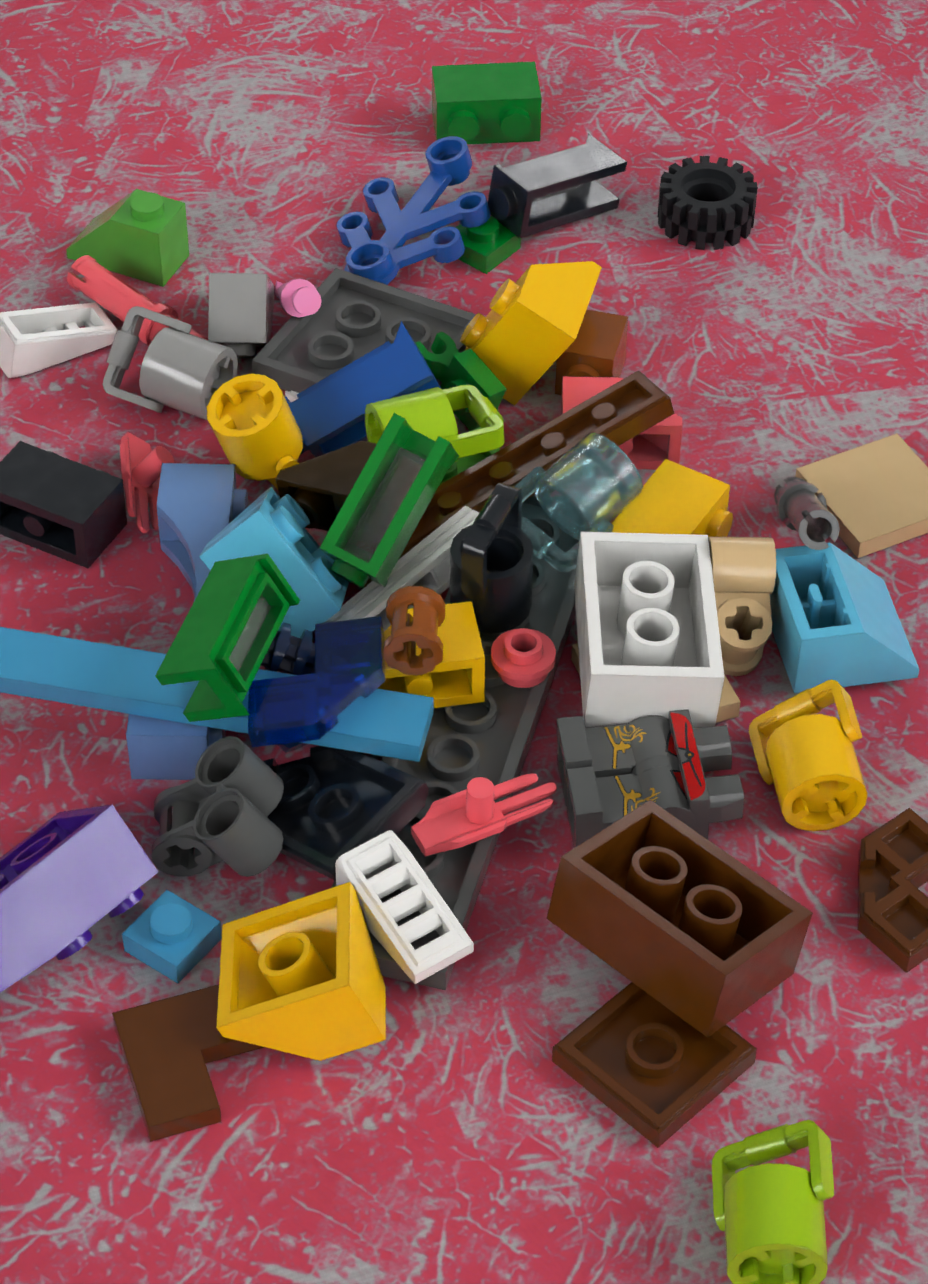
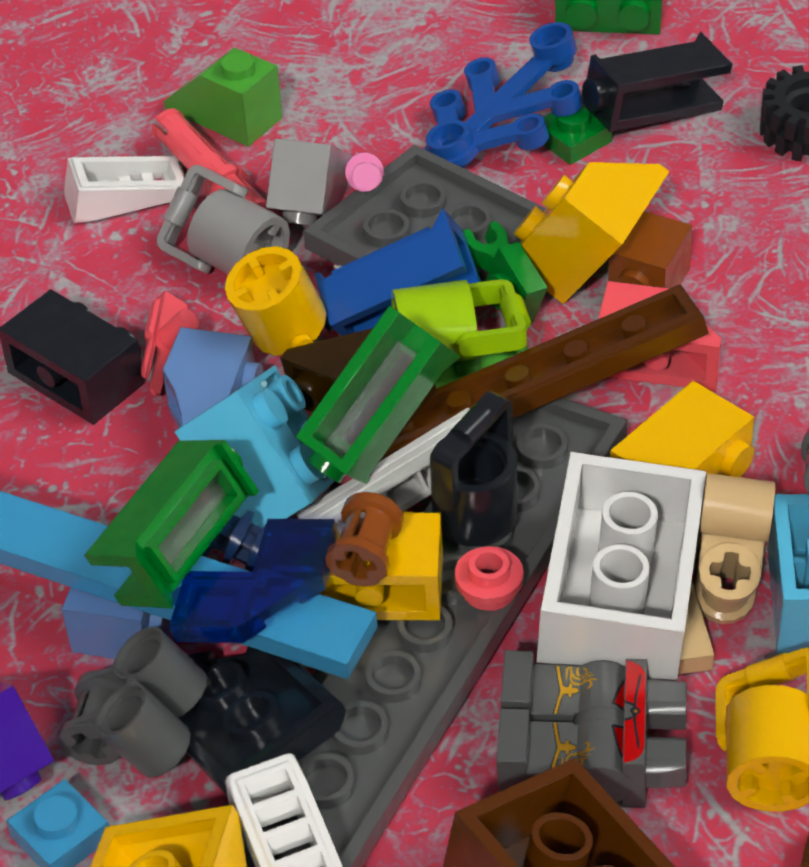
camera: 15 degrees right, 0 degrees up
(475, 815) = (394, 745): coral piece -> none
(580, 495) = (590, 407): clear light blue piece -> none

